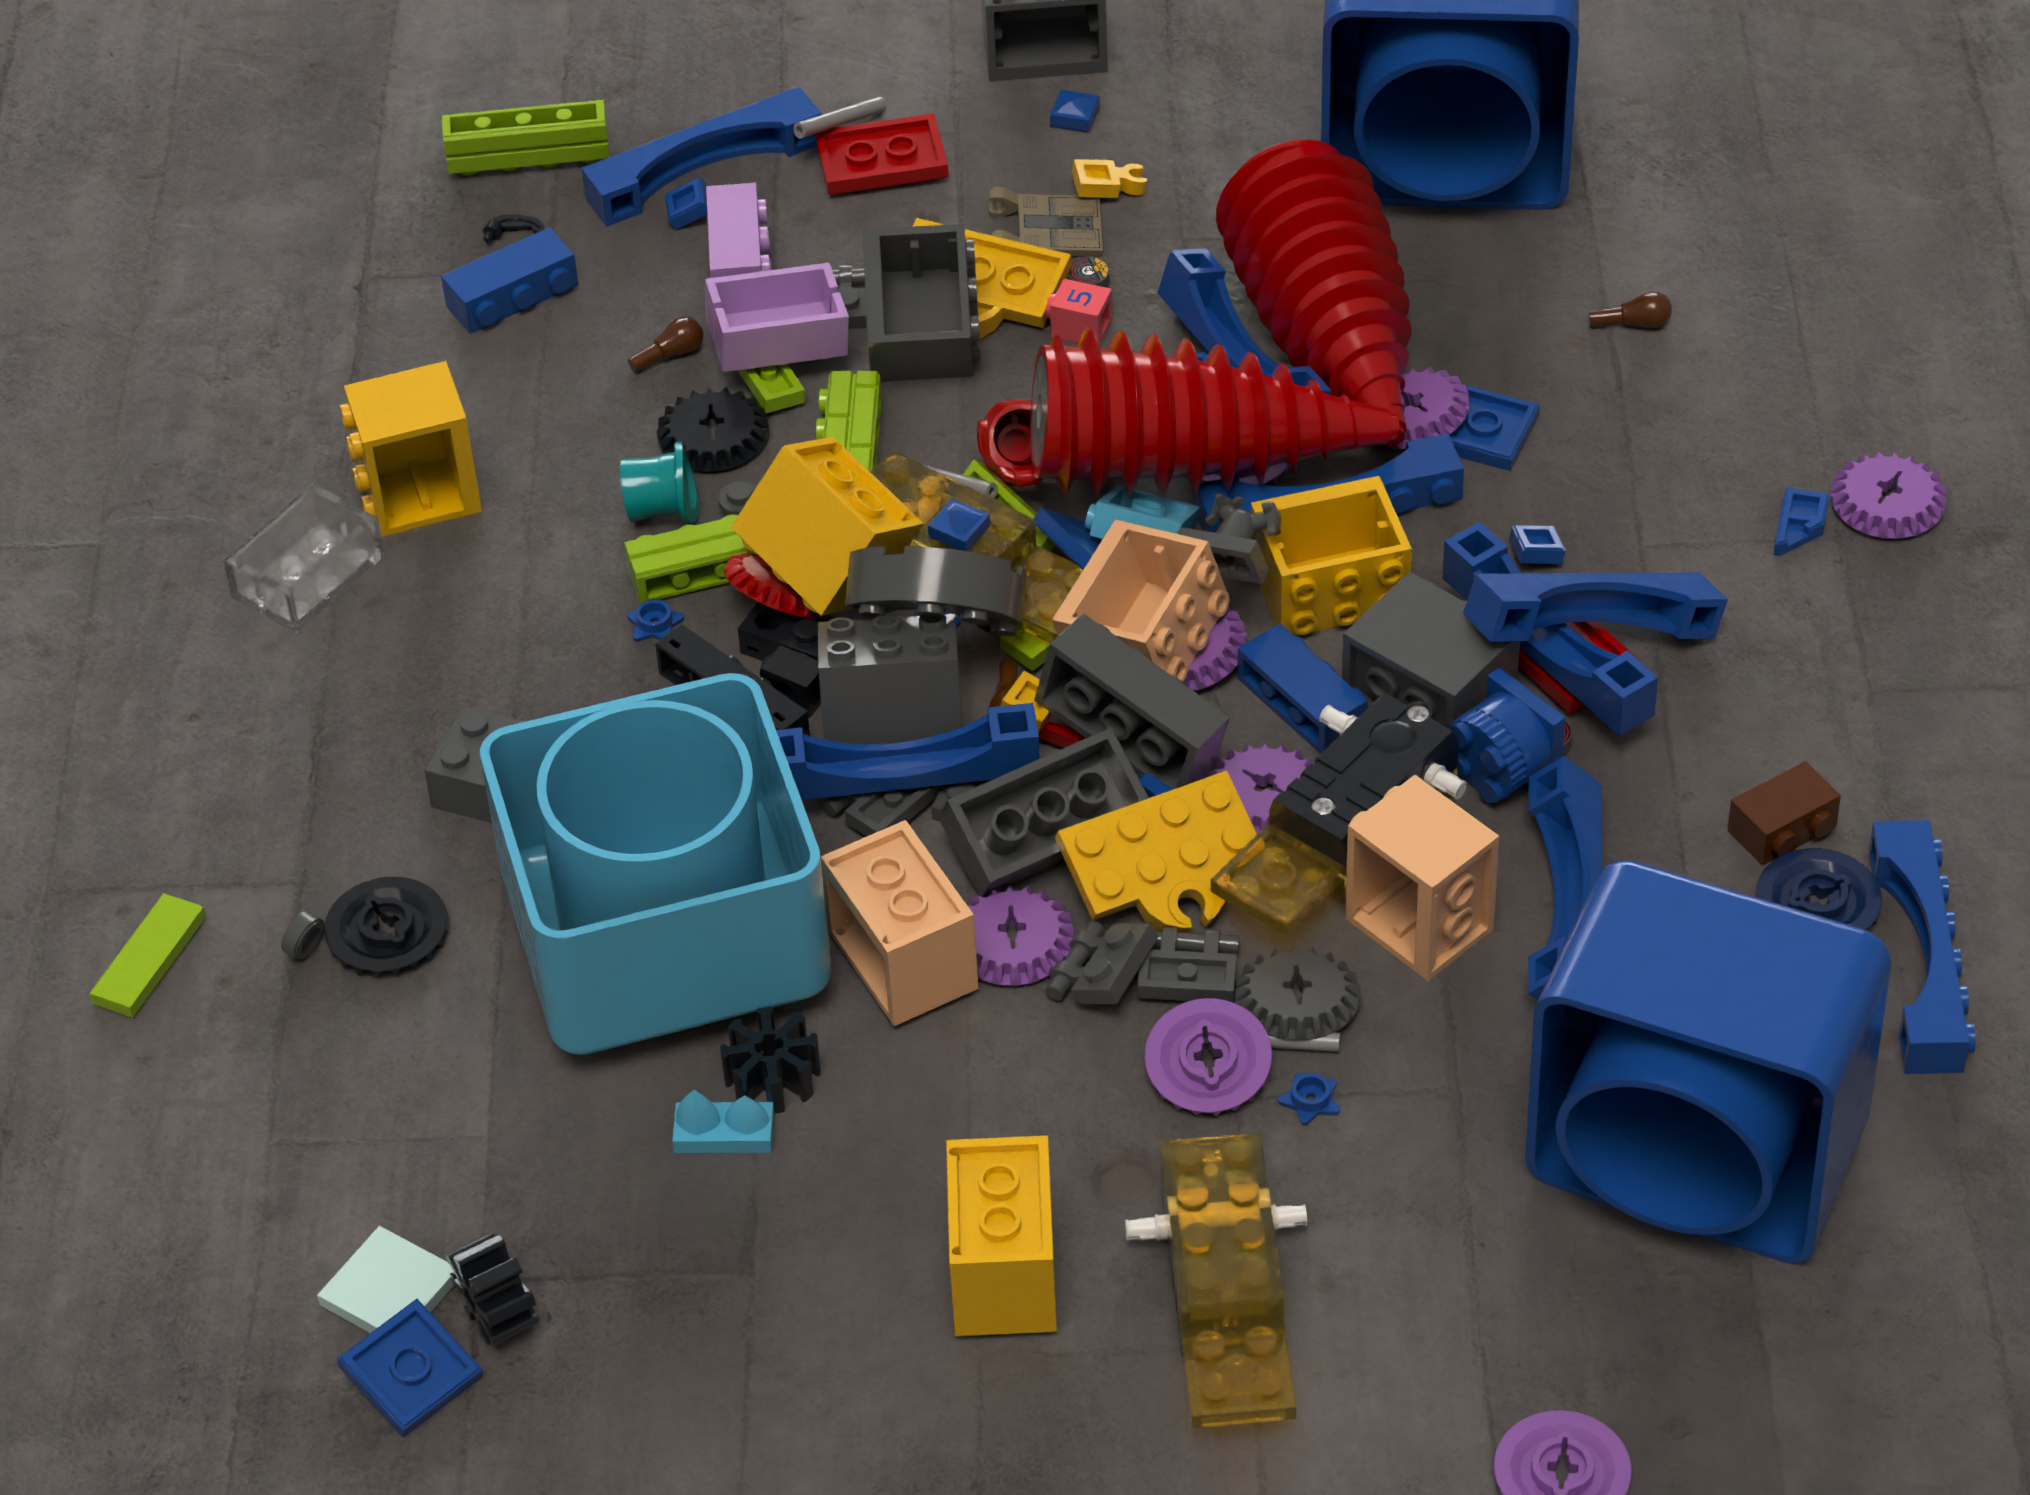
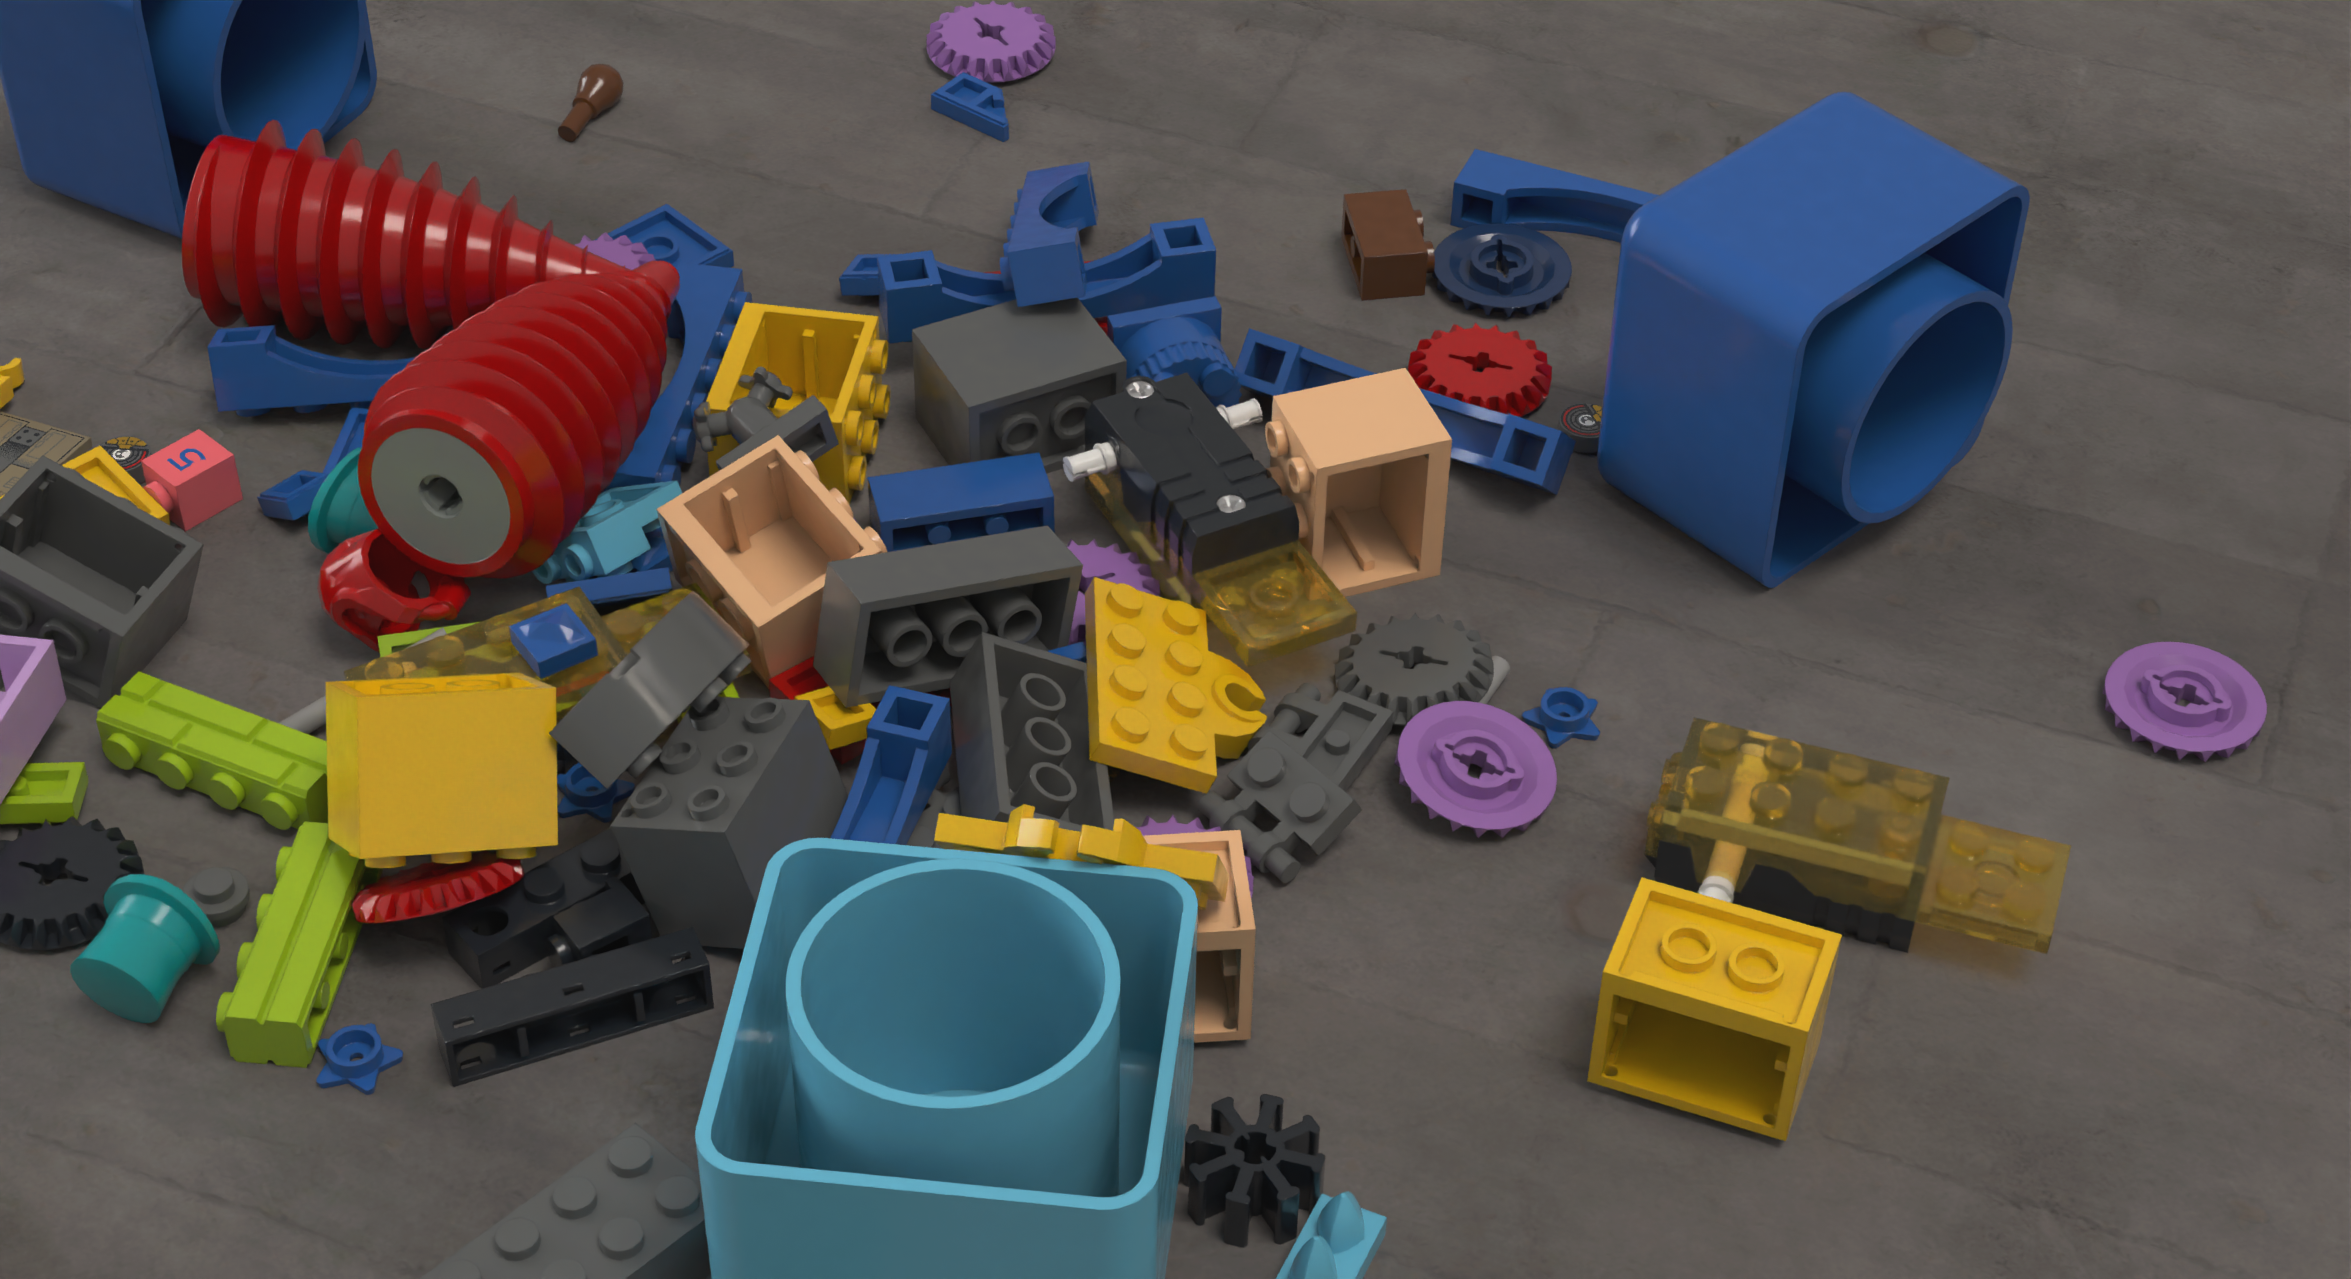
camera: 70 degrees left, 5 degrees down
(852, 818) = (1045, 839): none -> yellow plate

